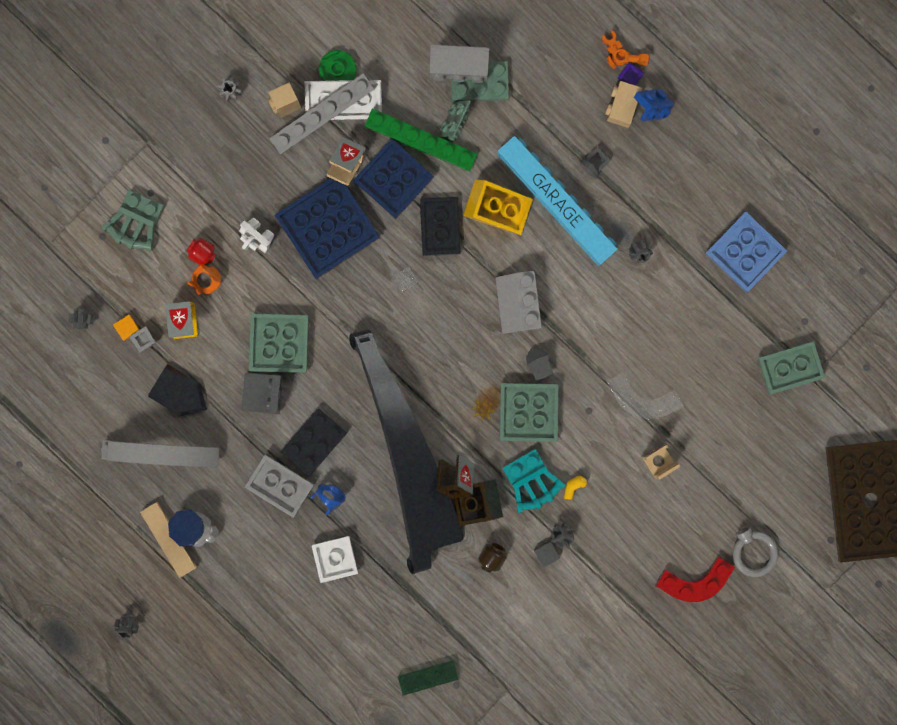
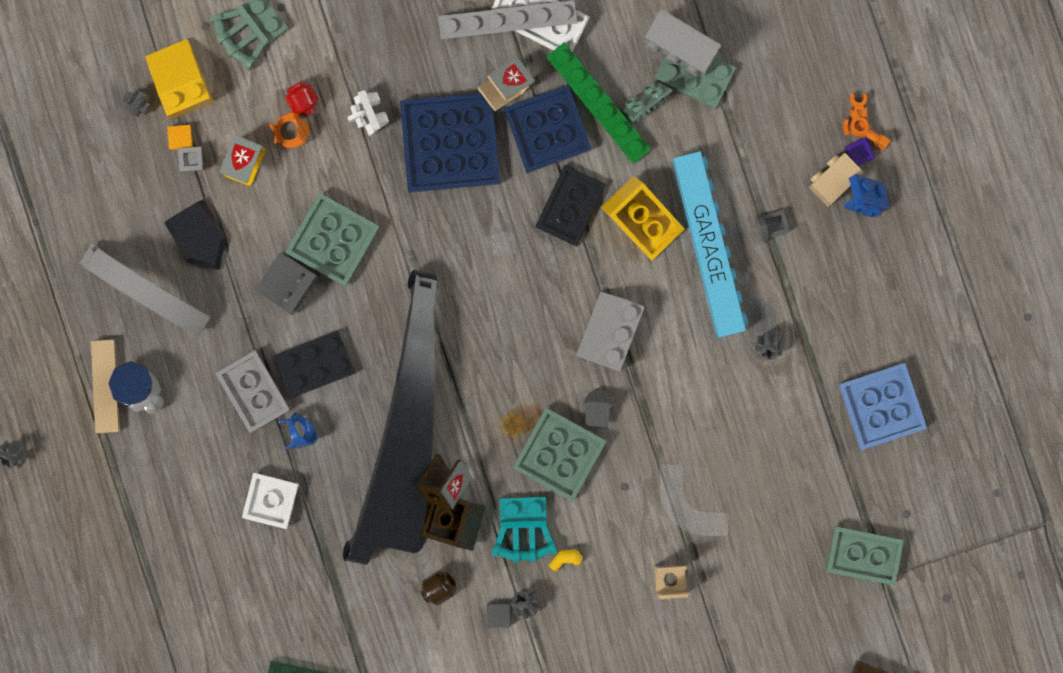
camera: 25 degrees right, 0 degrees up
(103, 285) = (178, 79): none -> yellow slope

